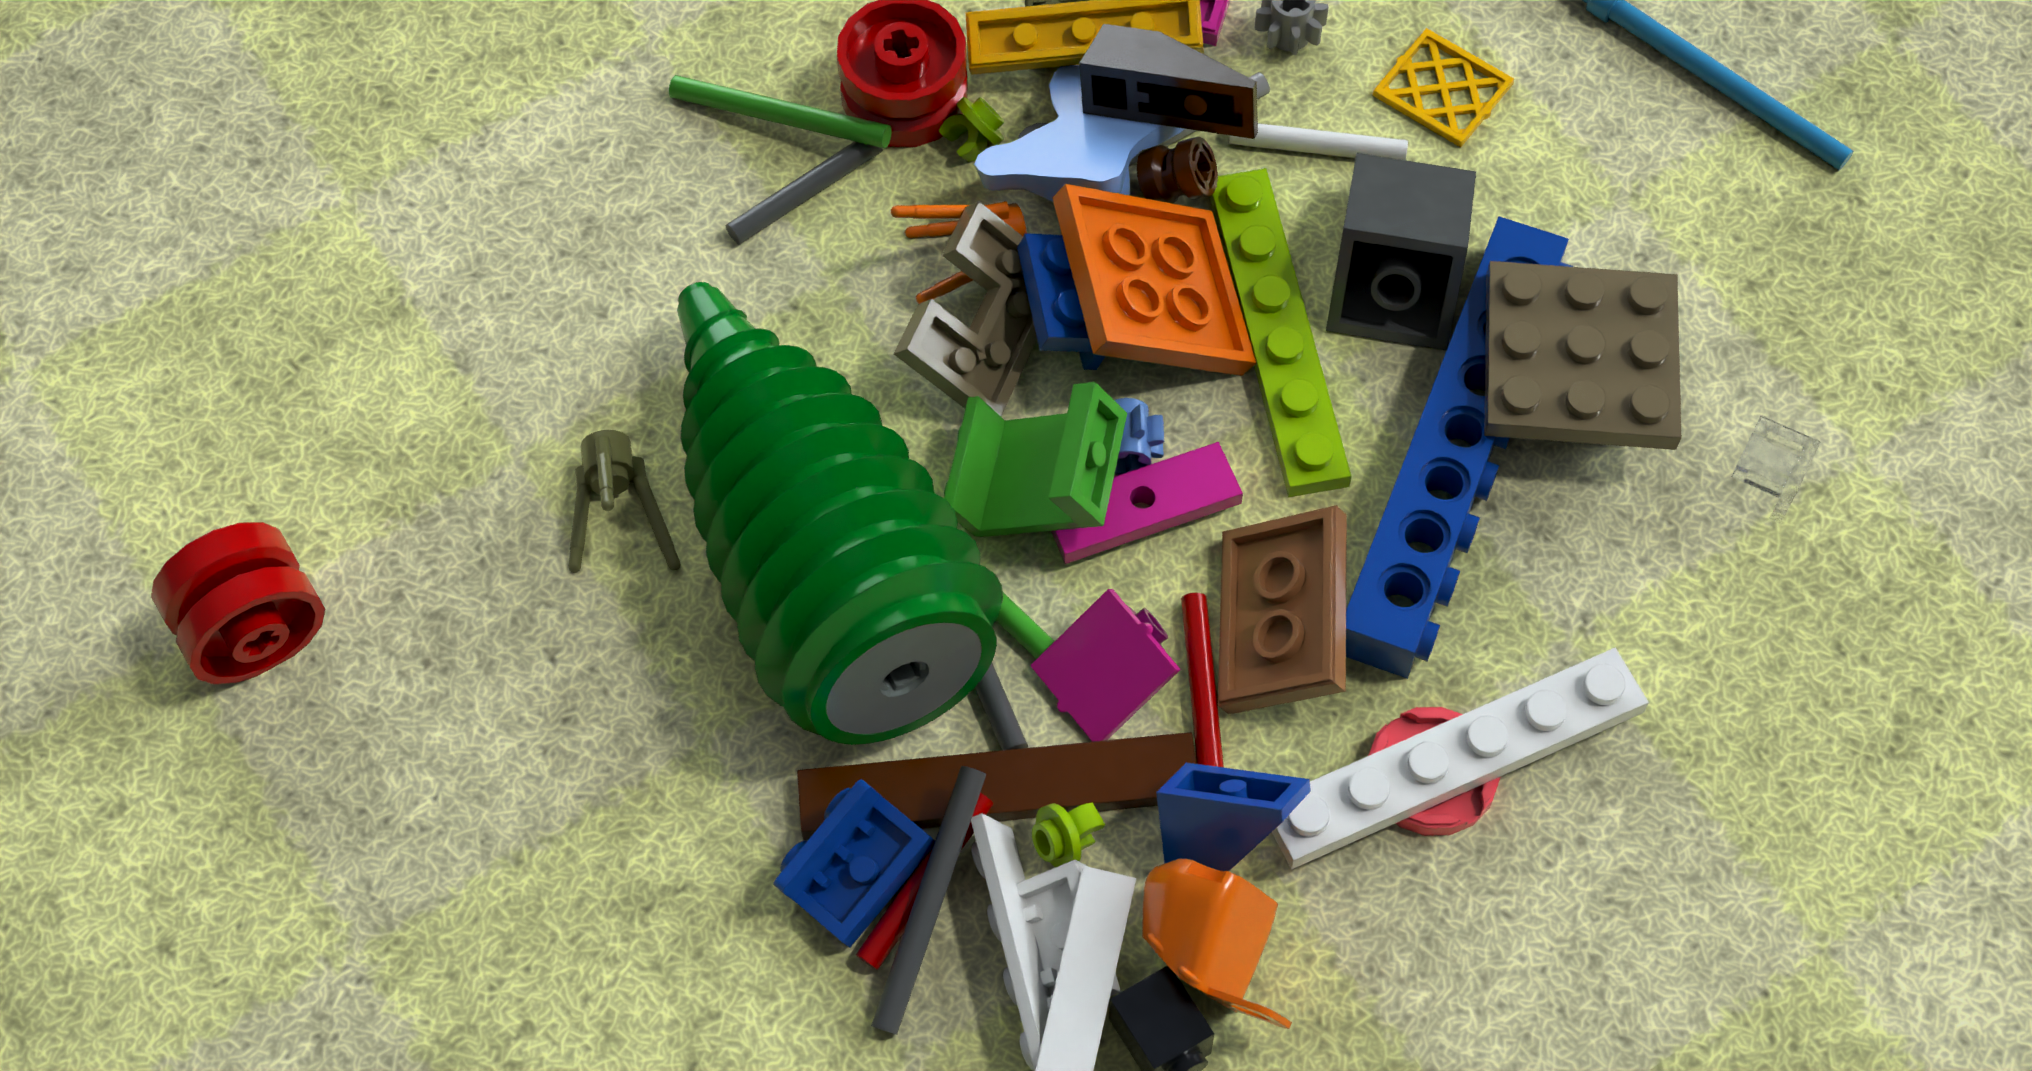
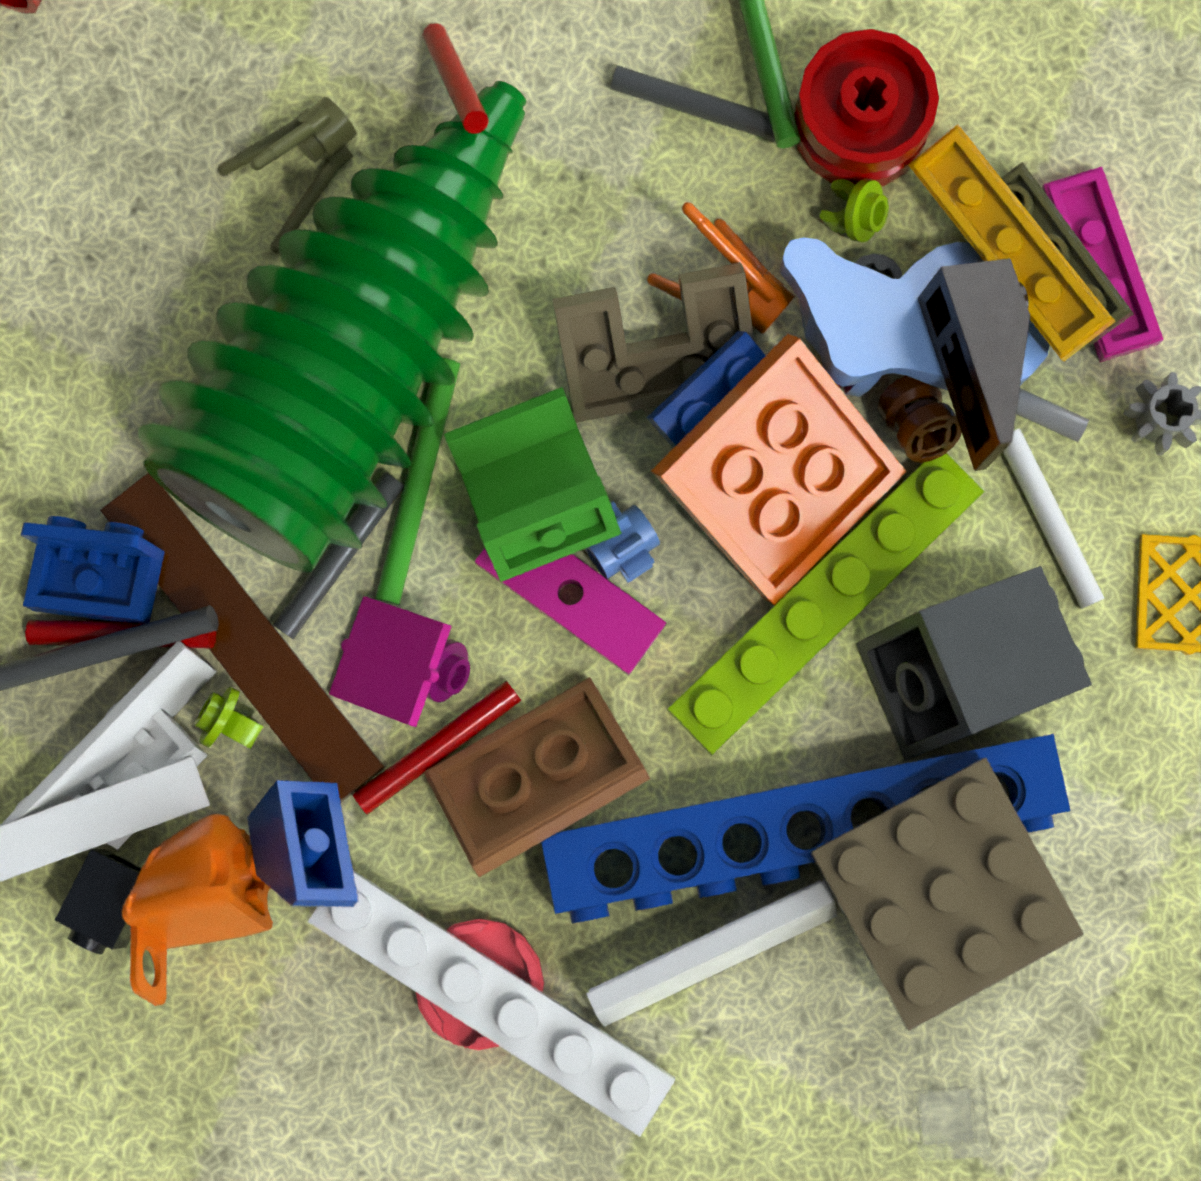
camera: 60 degrees right, 20 degrees up
(652, 323) = (455, 78): none -> red bar
(1521, 566) = (712, 953): none -> white tile

